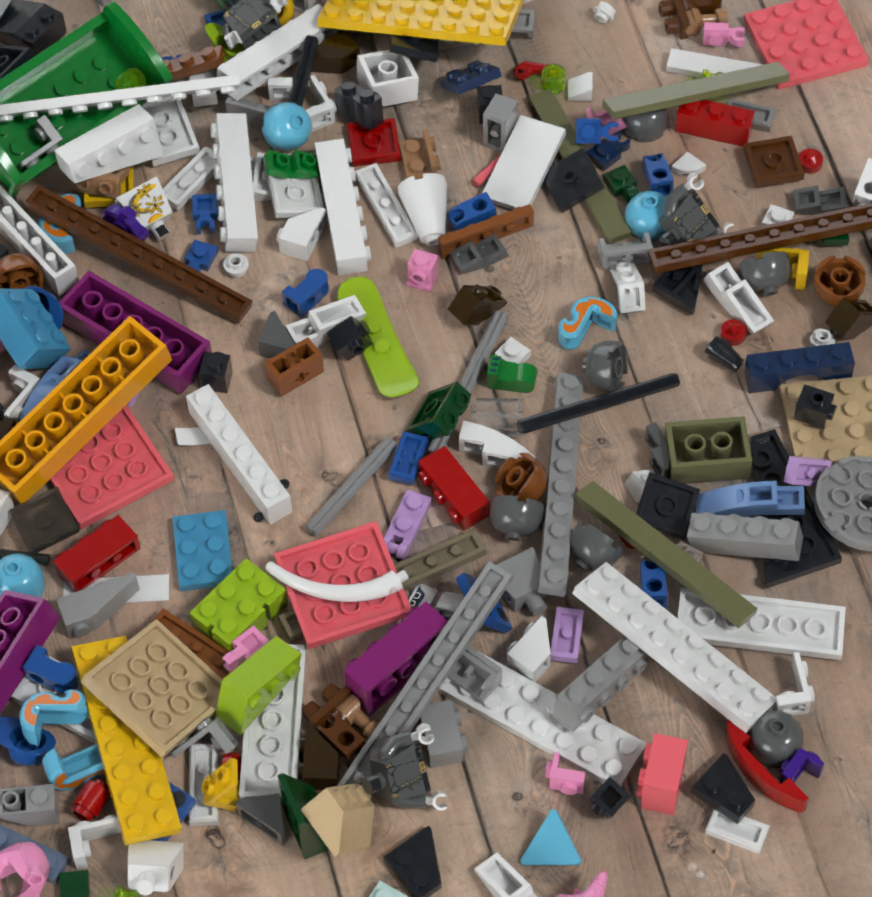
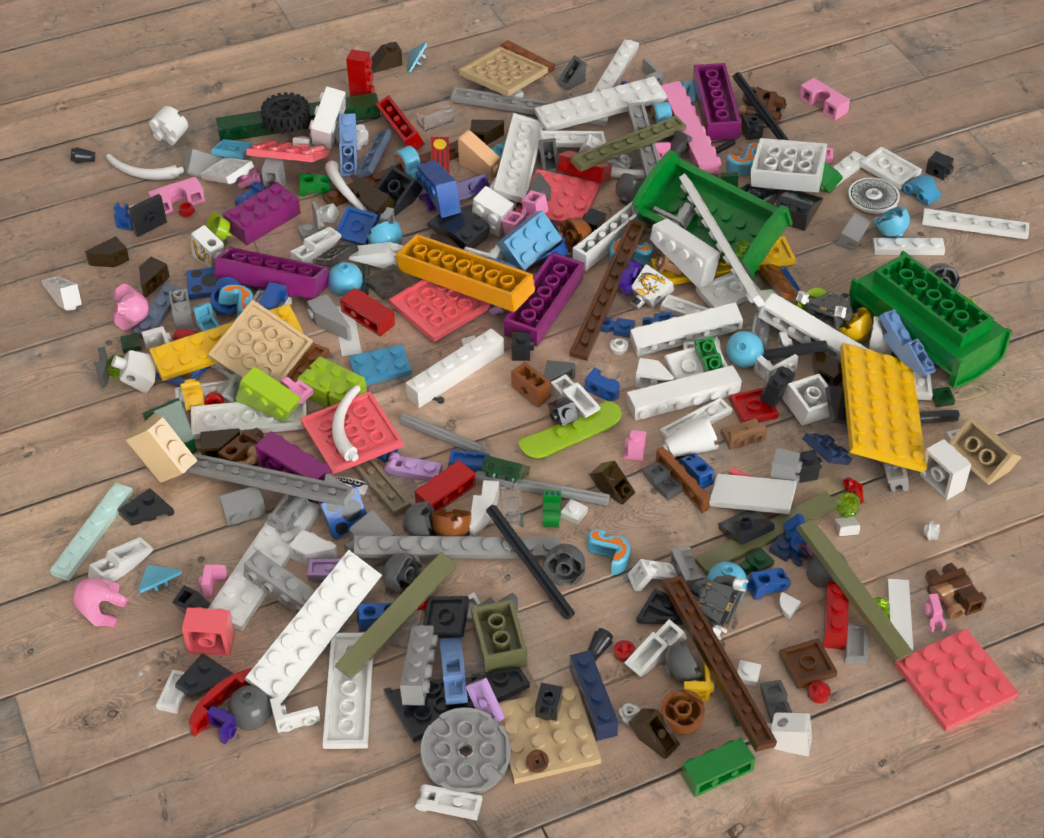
camera: 80 degrees right, 10 degrees down
(401, 772) = (201, 480): dark grey torso -> none

